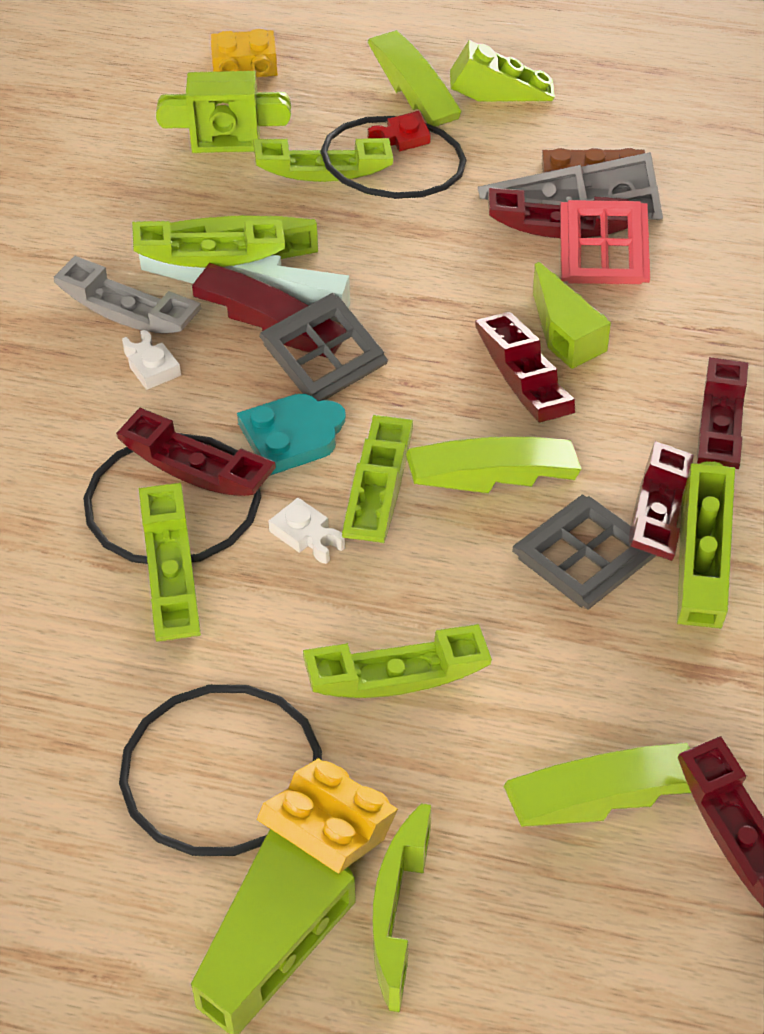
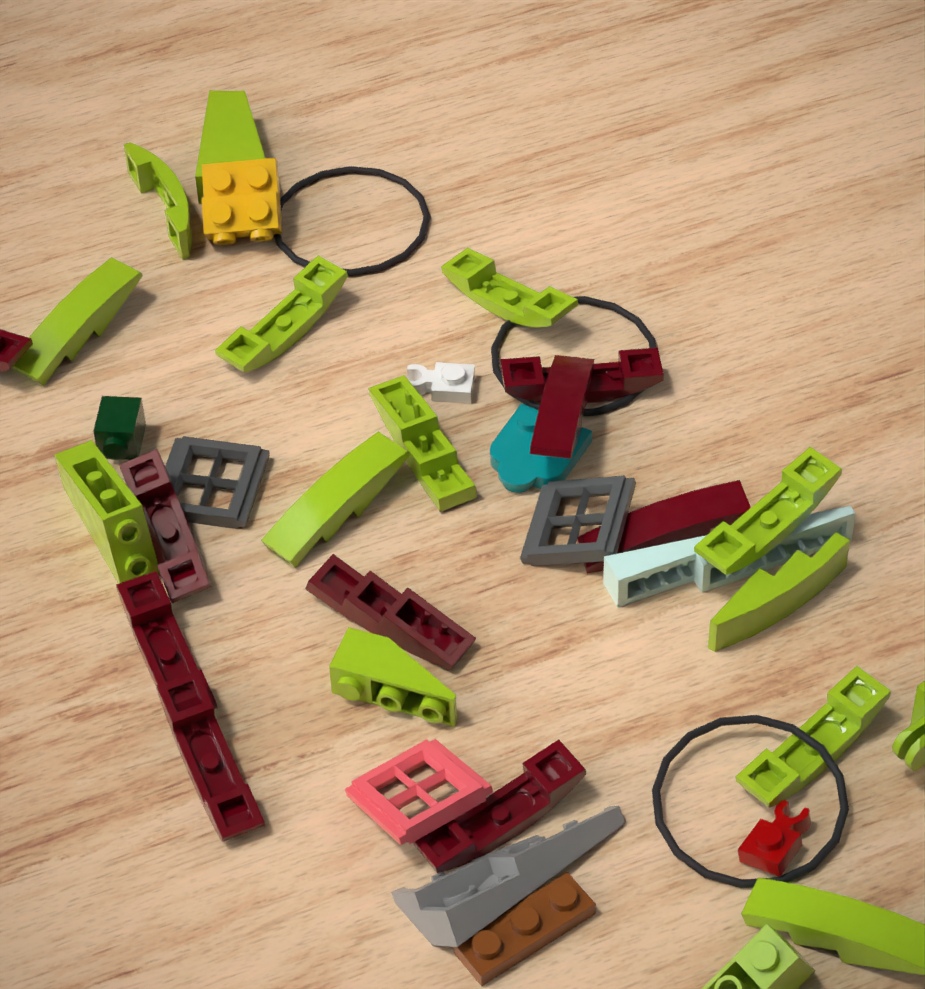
camera: 145 degrees right, 0 degrees up
(127, 306) = (860, 463): light grey slope -> none
(151, 363) = (720, 442): white plate -> none
(254, 404) = (562, 407): none -> dark red slope
(638, 631) = (120, 427): none -> dark green brick
(739, 322) = (208, 757): none -> dark red slope

